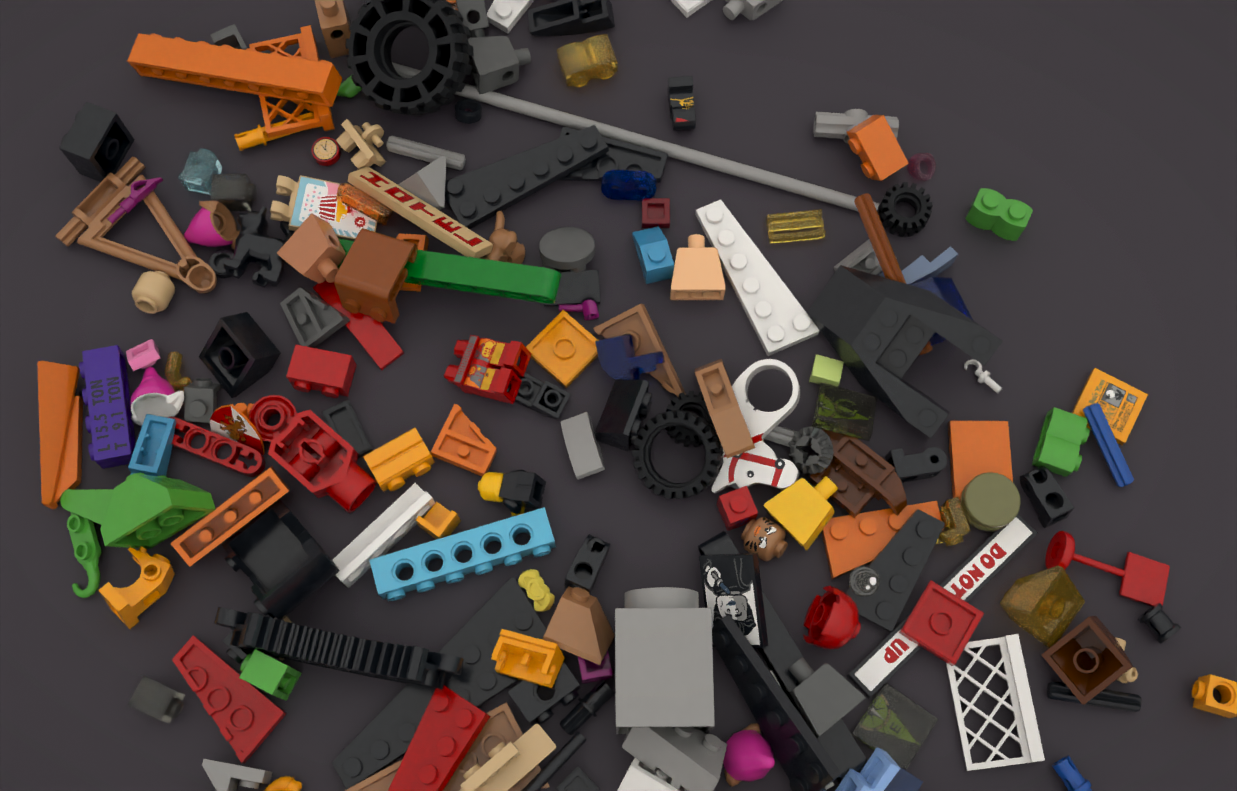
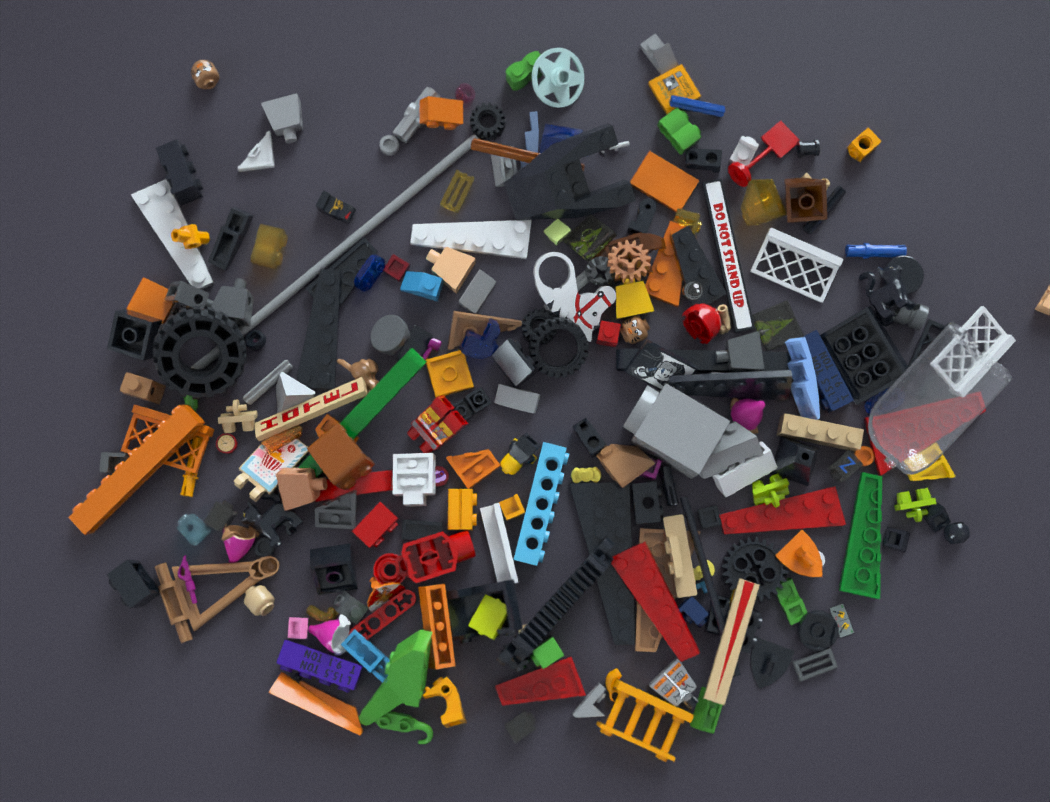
camera: 60 degrees left, 10 degrees up
(271, 569) = (489, 617): none -> neon yellow piece
(406, 380) = (414, 477): none -> white piece
(427, 410) = (441, 475): none -> dark red tile
(527, 658) = (625, 501): light orange hinge -> none
(687, 320) = (477, 291): none -> light grey slope
(724, 408) = (546, 303): medium nougat slope -> none
(798, 120) = (389, 145): none -> light grey tile
(845, 458) = (621, 265): none -> nougat gear
(857, 647) = (725, 320): none -> tan arm
(941, 623) = (739, 263): red tile -> none
(990, 501) = (690, 192): olive head -> none
(1018, 254) = (558, 77): none -> light aqua wheel
(1095, 541) = (744, 151): none -> white bracket
(1139, 360) = (659, 54): none -> light grey slope

